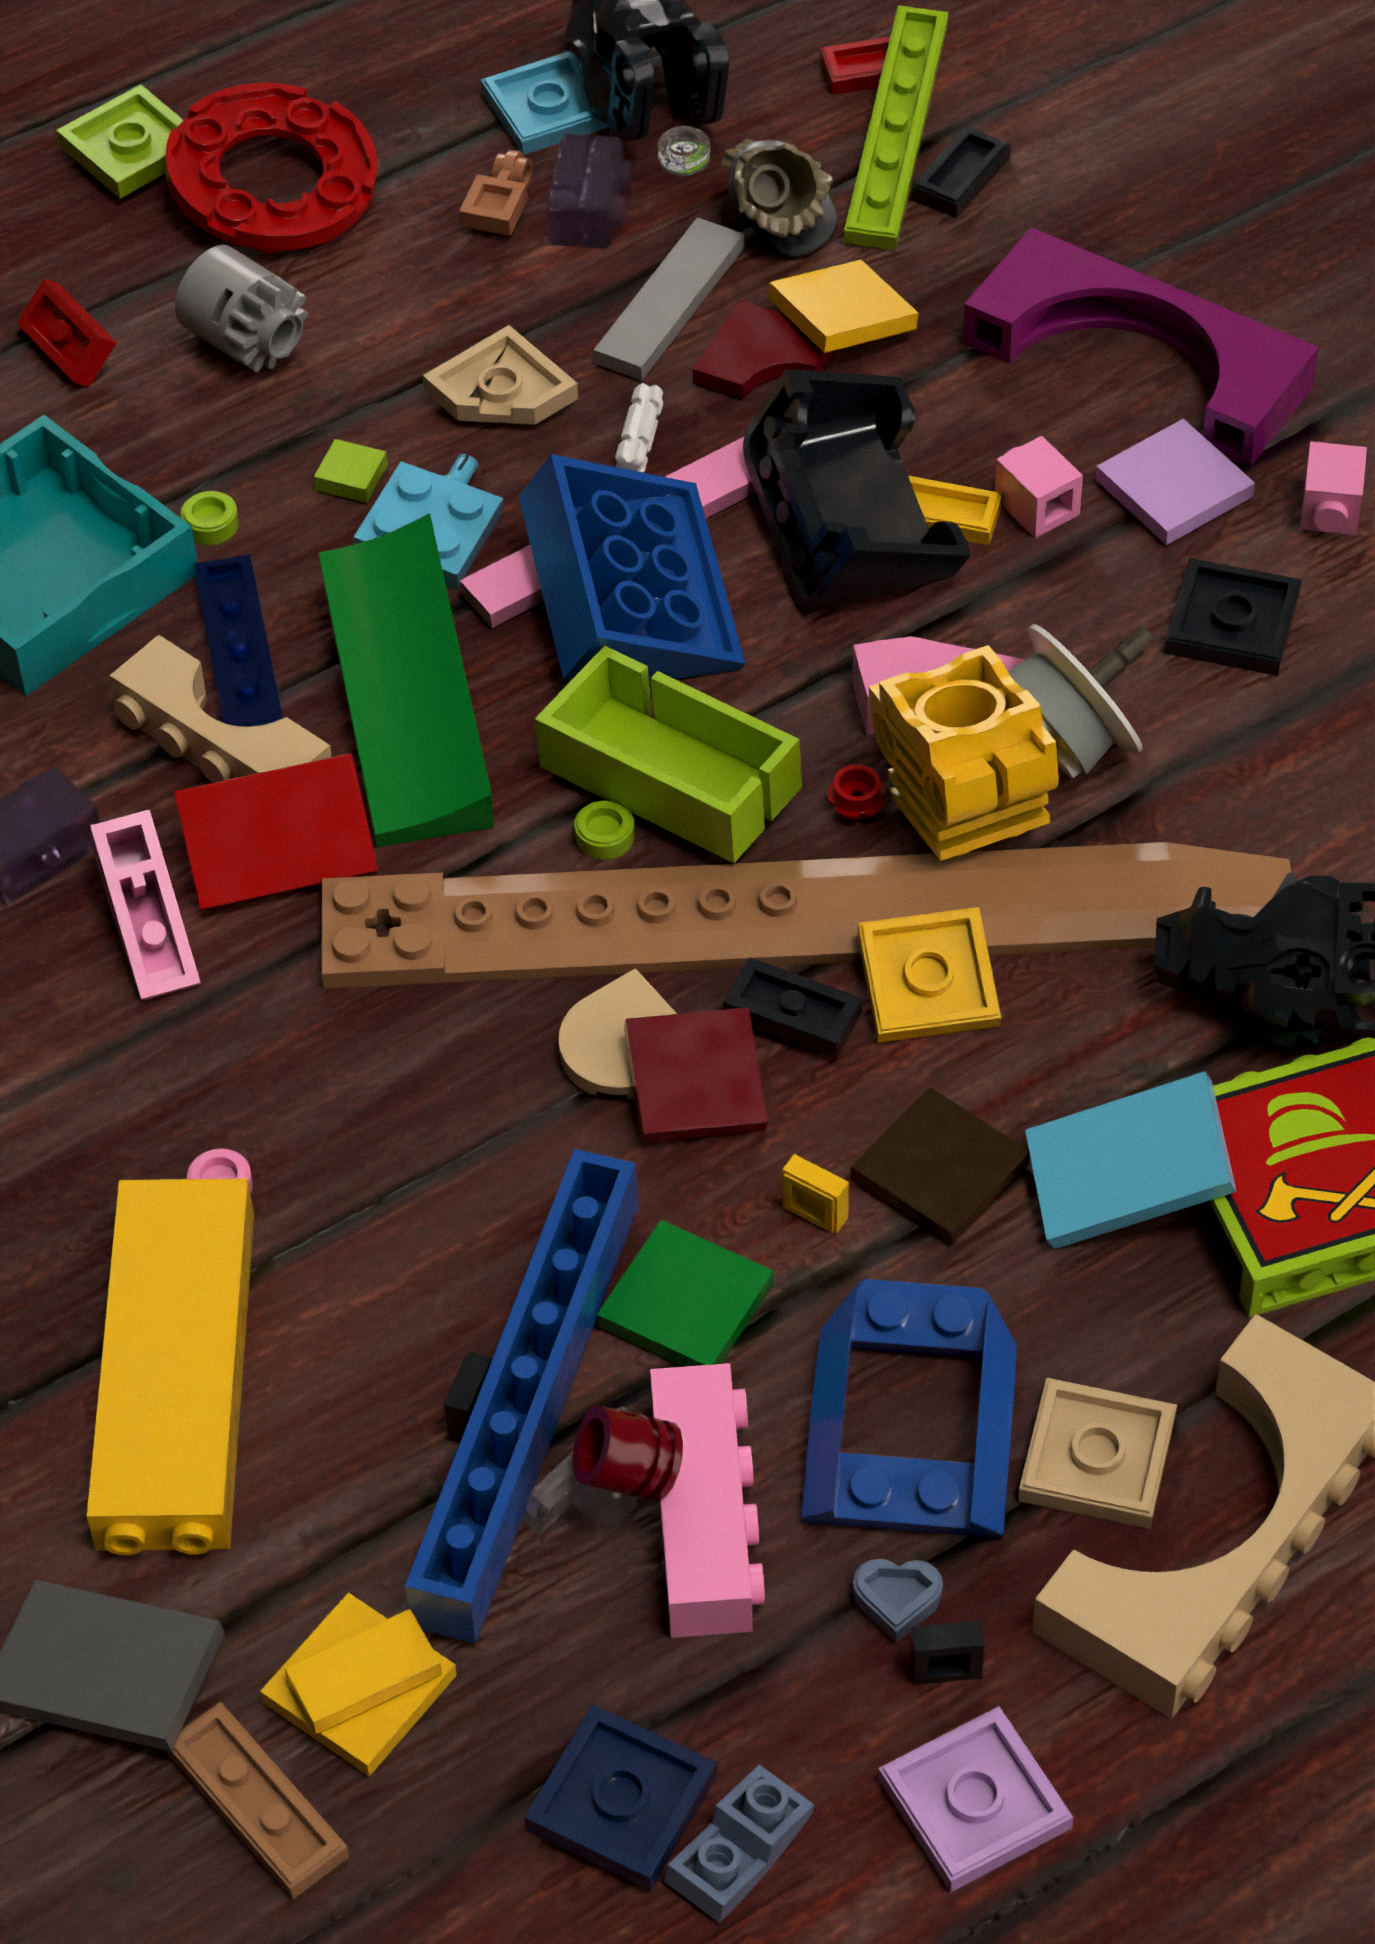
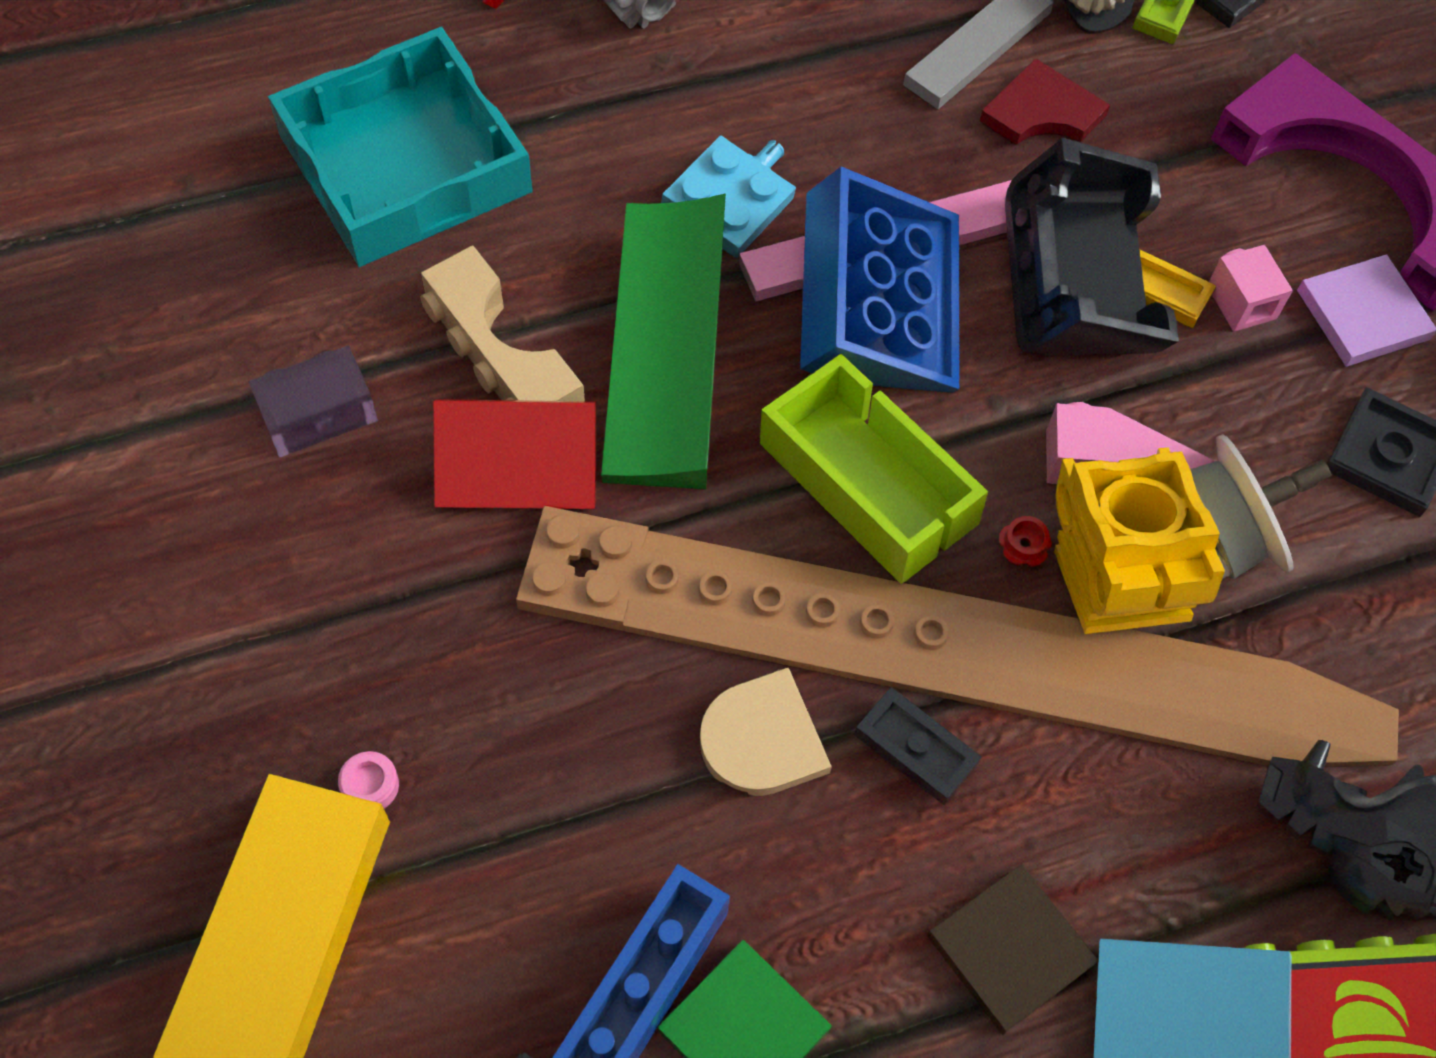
camera: 10 degrees right, 10 degrees up
(143, 904) = (385, 495): bright pink slope -> none
(211, 517) = (554, 145): lime tile -> none
(238, 642) = (542, 268): clear blue tile -> none
(350, 470) = (679, 132): lime tile -> none
(501, 382) = (822, 84): tan plate -> none
(604, 830) = (798, 518): lime tile -> none
(639, 428) = (924, 153): white axle -> none
(695, 1074) = (813, 795): dark red tile -> none
(815, 1194) = (889, 954): yellow tile -> none
(843, 306) = (1120, 84): yellow tile -> none
(928, 974) = (1047, 745): yellow tile -> none

